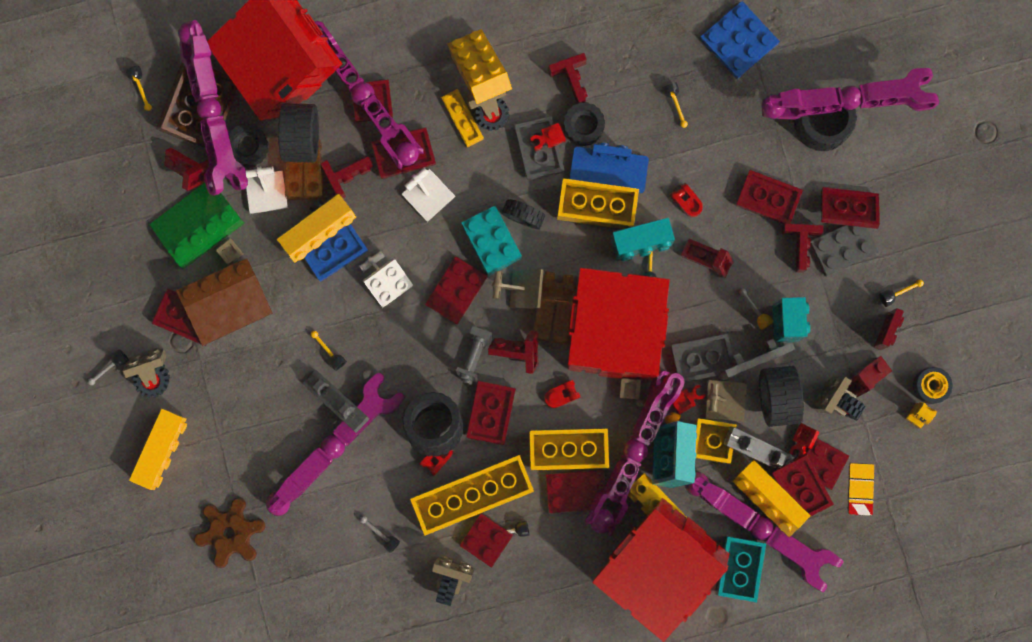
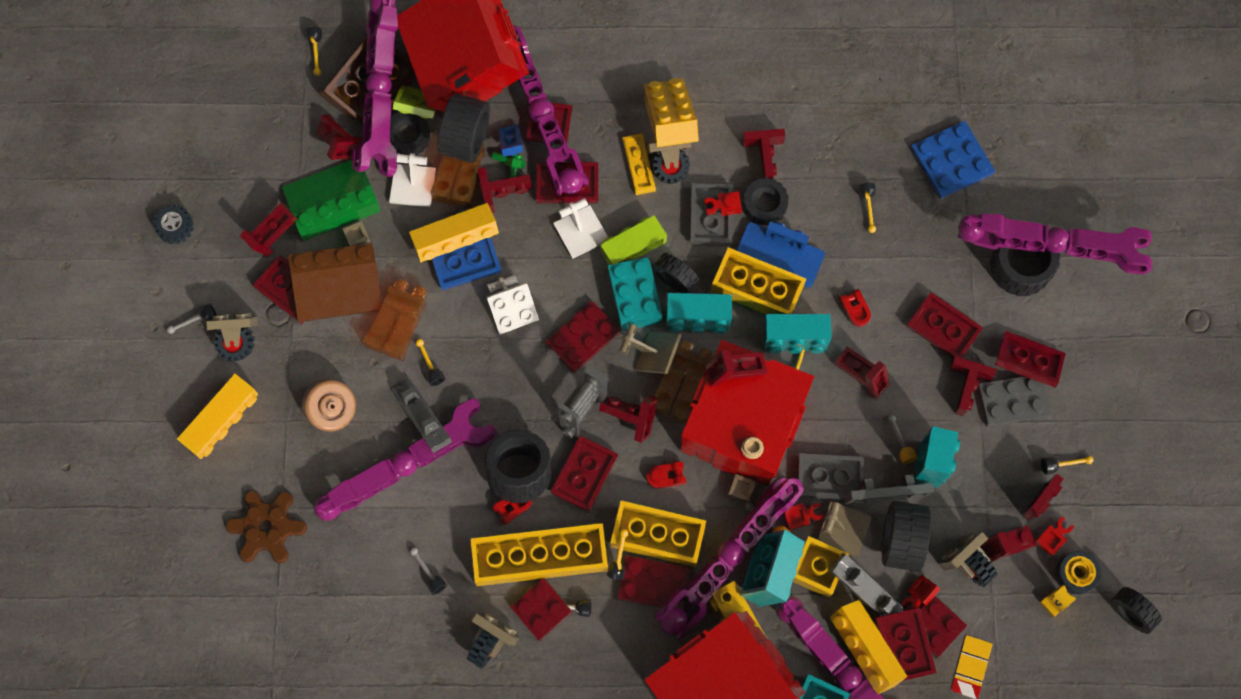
camera: 15 degrees right, 10 degrees down
(56, 285) = (166, 222): none -> black wheel
(151, 271) = (269, 230): none -> dark red bracket
(242, 116) = (412, 101): none -> lime plate
(252, 413) = (329, 405): none -> wheel
(286, 306) = (396, 320): none -> clear orange hips
(342, 128) = (510, 140): none -> blue plate
(352, 146) = (515, 162): none -> green piece
(477, 193) = (634, 241): none -> lime brick
(541, 490) = (617, 569): none -> hinge
(552, 244) = (698, 312): none -> teal brick
(600, 291) = (730, 366): none -> dark red bracket
(632, 359) = (752, 448): none -> tan plate
(905, 361) = (1052, 538): none -> red plate
(989, 406) = (1136, 610): none -> black tyre

